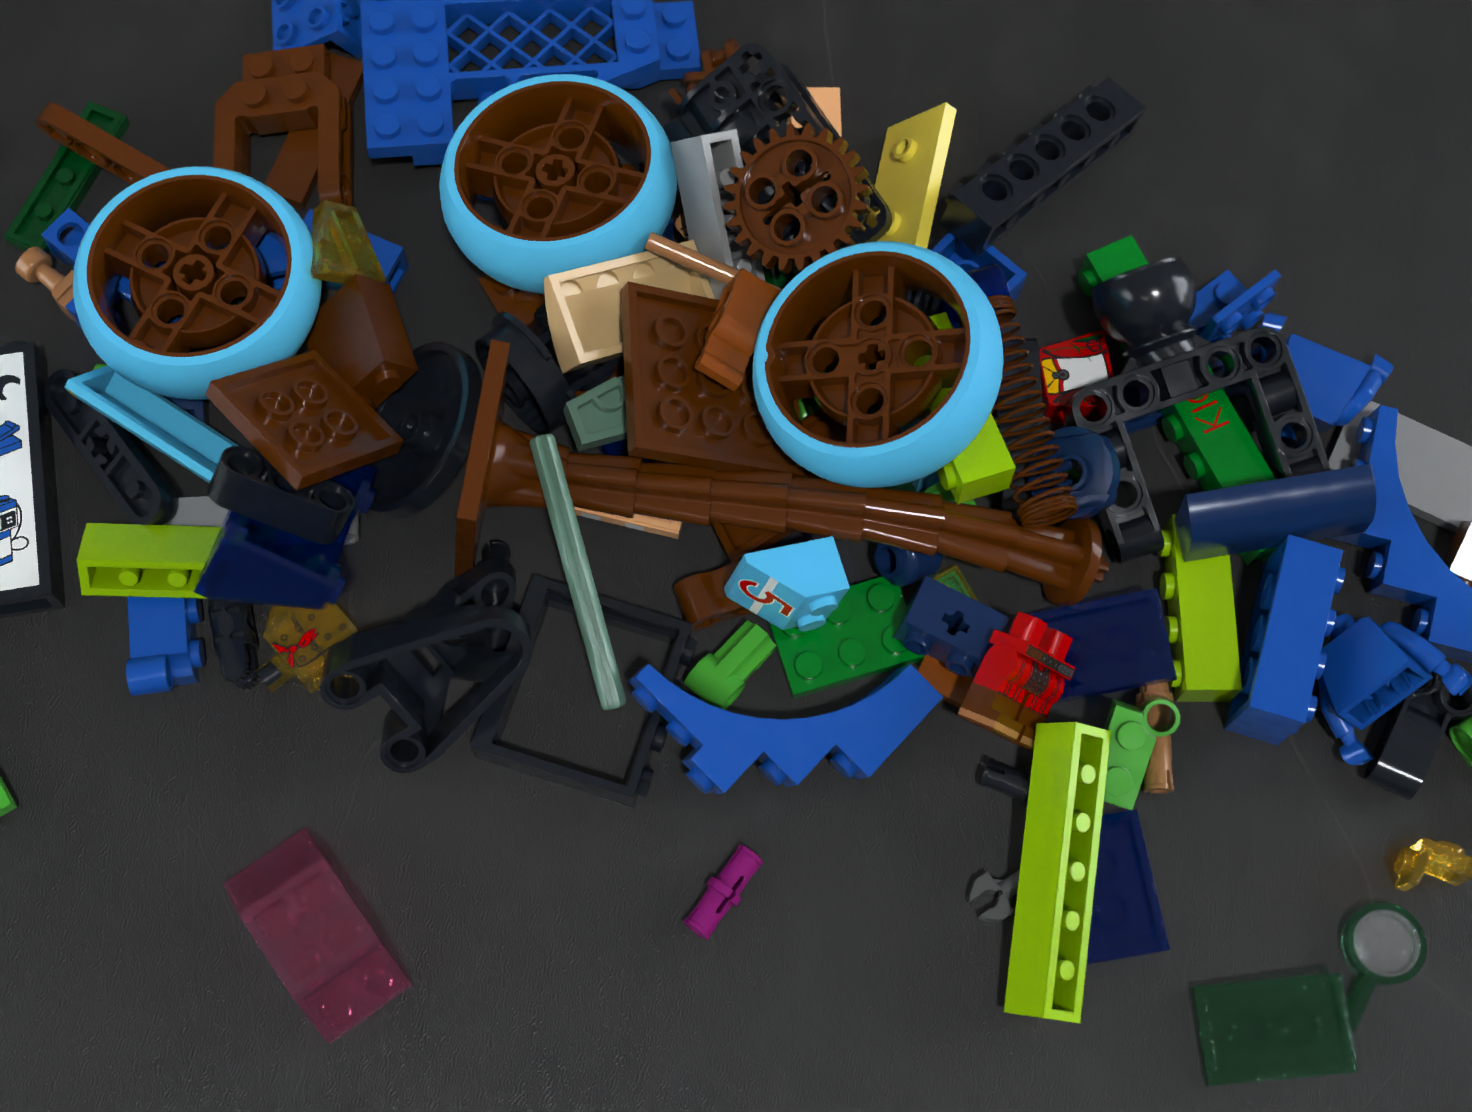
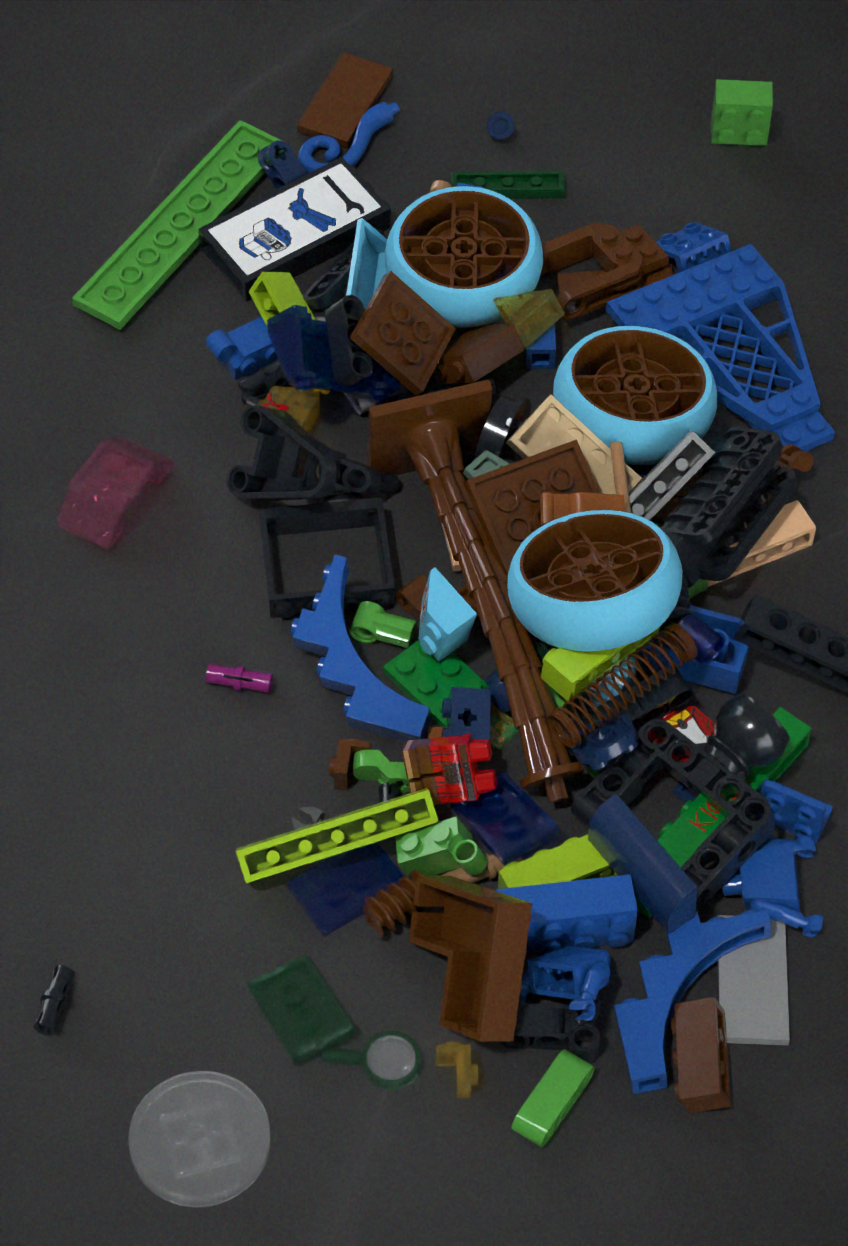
camera: 70 degrees right, 15 degrees down
(96, 144) = (531, 182): reddish brown beam -> none
(577, 571) = (388, 501): sand green axle -> none
(775, 166) = (686, 497): reddish brown gear -> none
(913, 173) = (791, 586): light yellow plate -> none
(928, 814) = (341, 764): none -> reddish brown bracket
(961, 765) = (374, 766): none -> bright green piece
(1173, 836) = (392, 904): none -> reddish brown piece
(1317, 753) = (485, 950): none -> reddish brown piece

